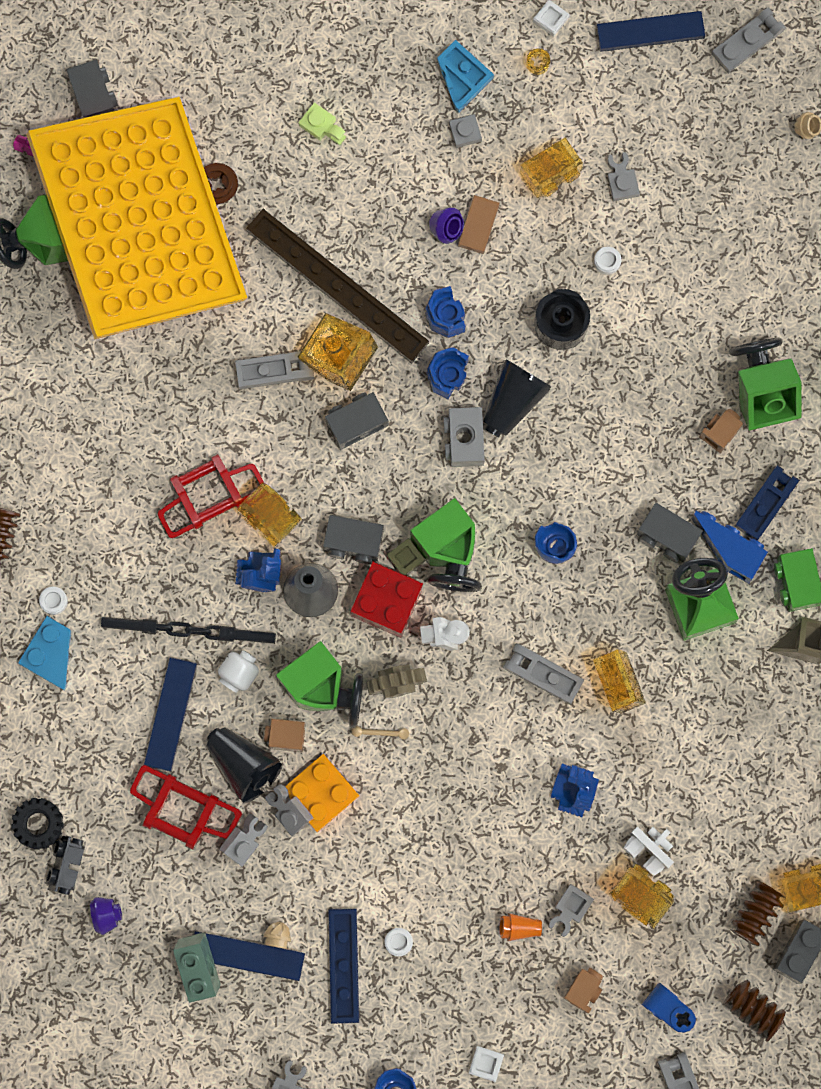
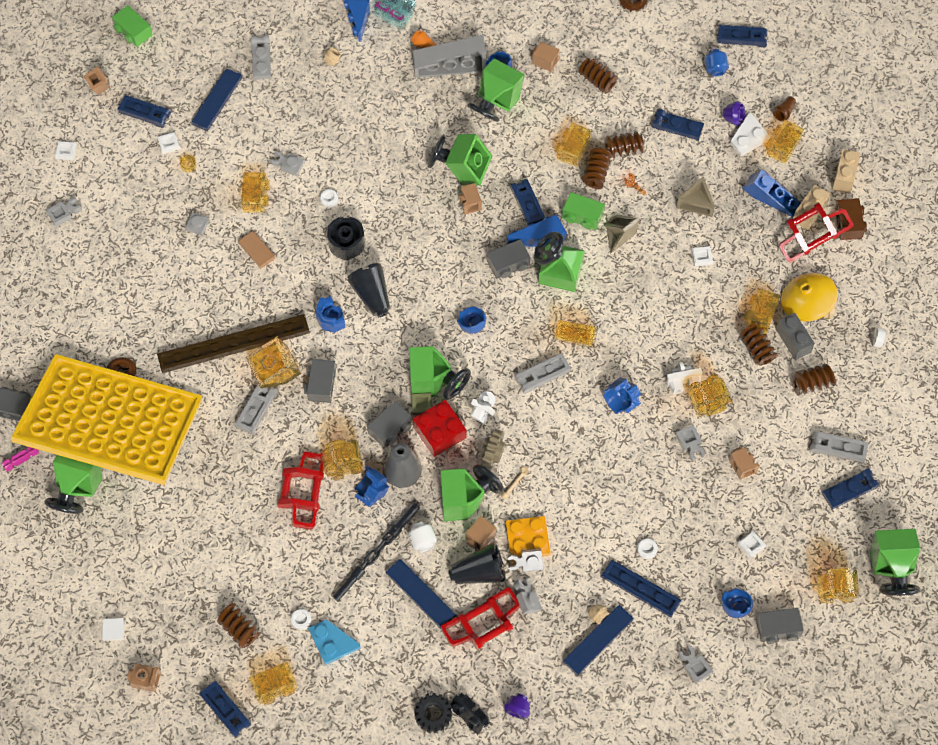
camera: 55 degrees left, 15 degrees down
(196, 967) = (587, 668): sand green brick -> none
(320, 123) = (130, 295): yellowish green plate -> none
(445, 313) = (295, 297): blue hair -> none
(446, 225) = (243, 264): dark purple cone -> none
(462, 75) = (164, 205): dark azure wing -> none
(471, 422) = (368, 321): light grey brick -> none
(519, 927) = (682, 476): orange cone -> none
(665, 1007) = (782, 425): blue piece -> none

